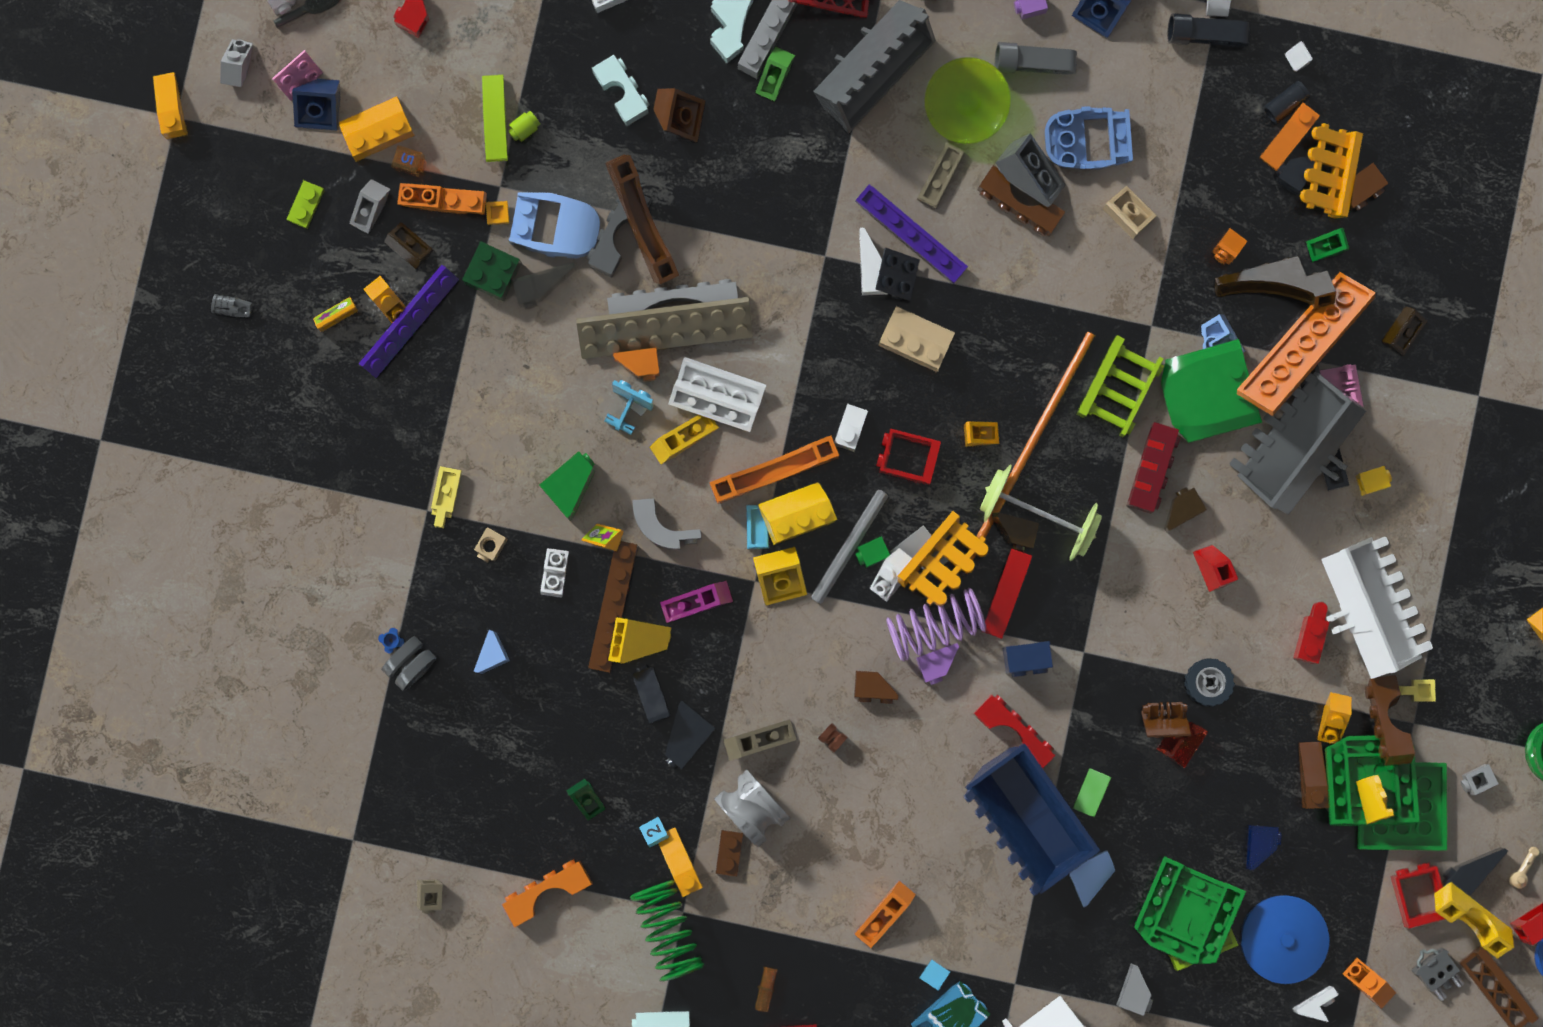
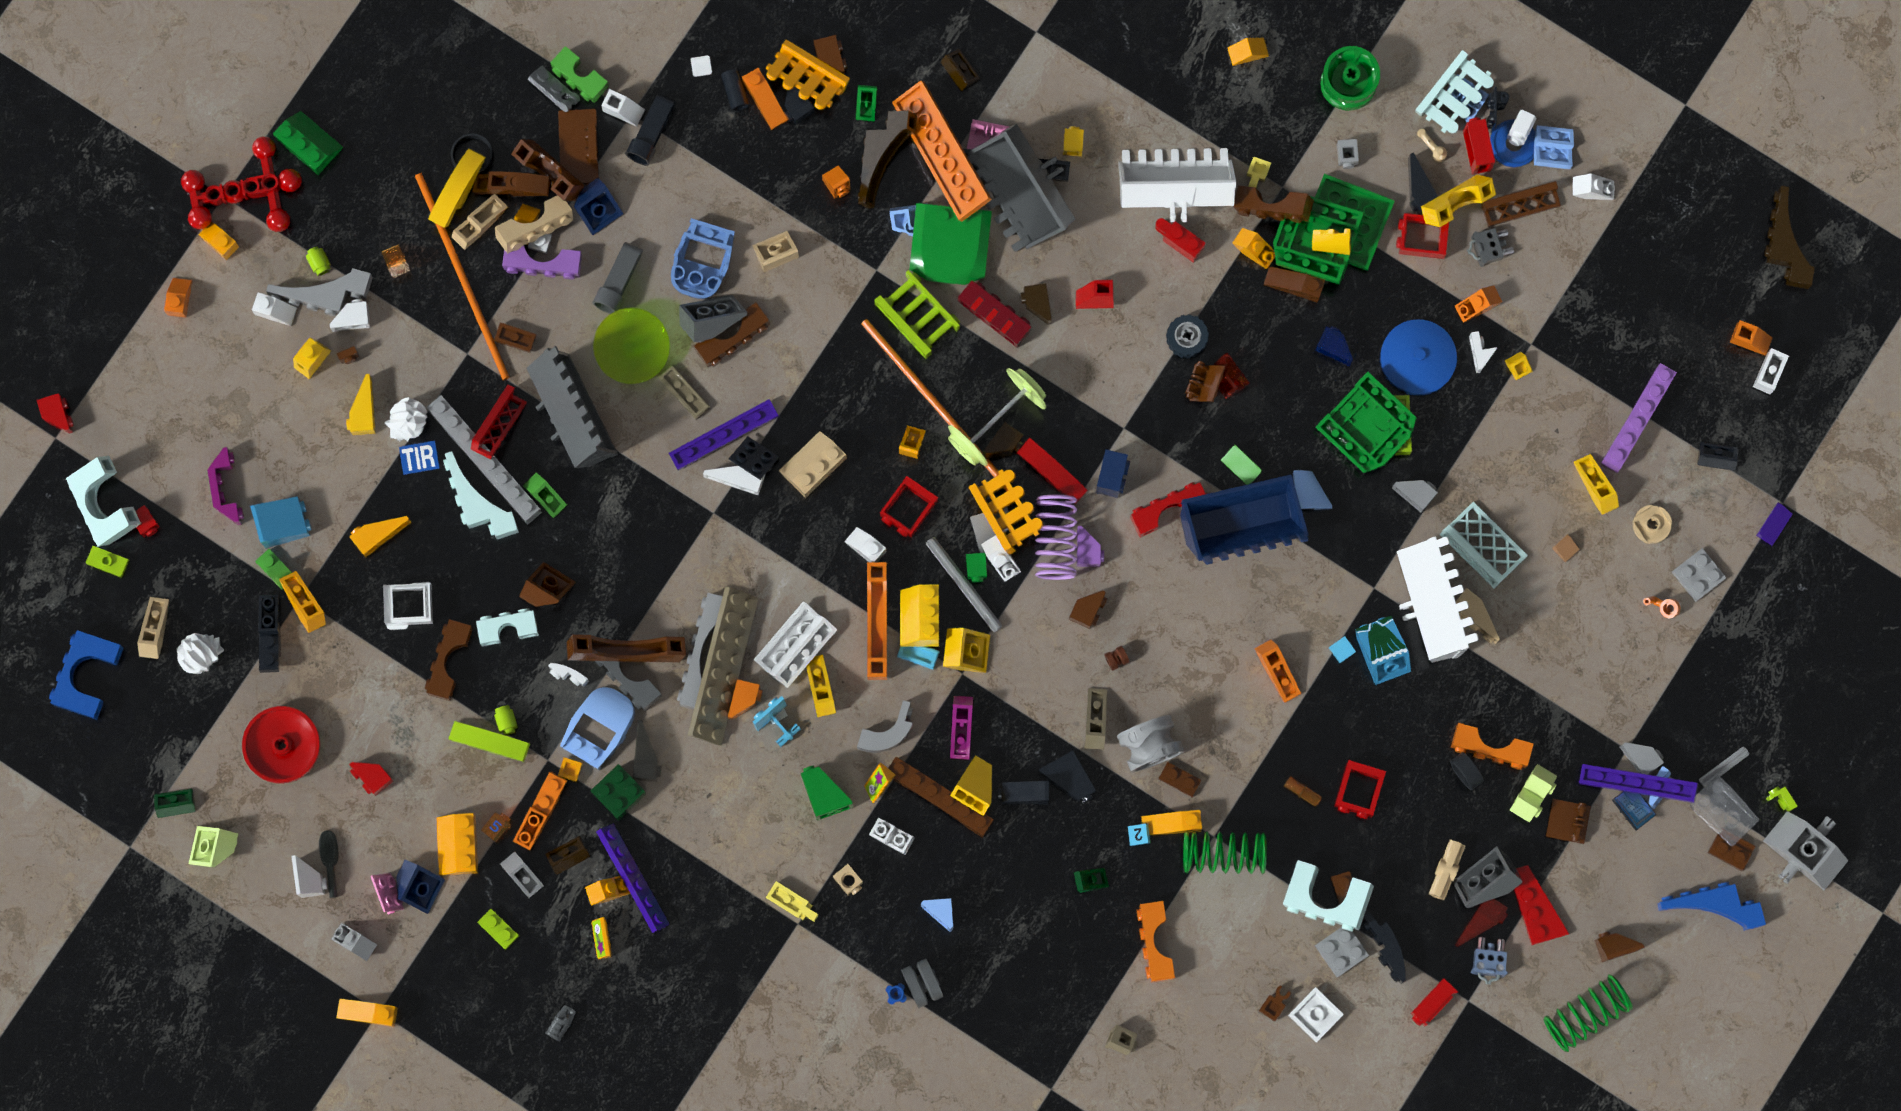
camera: 70 degrees left, 5 degrees down
(537, 44) = (455, 636): none -> reddish brown arch
(595, 165) = (563, 671): none -> white slope

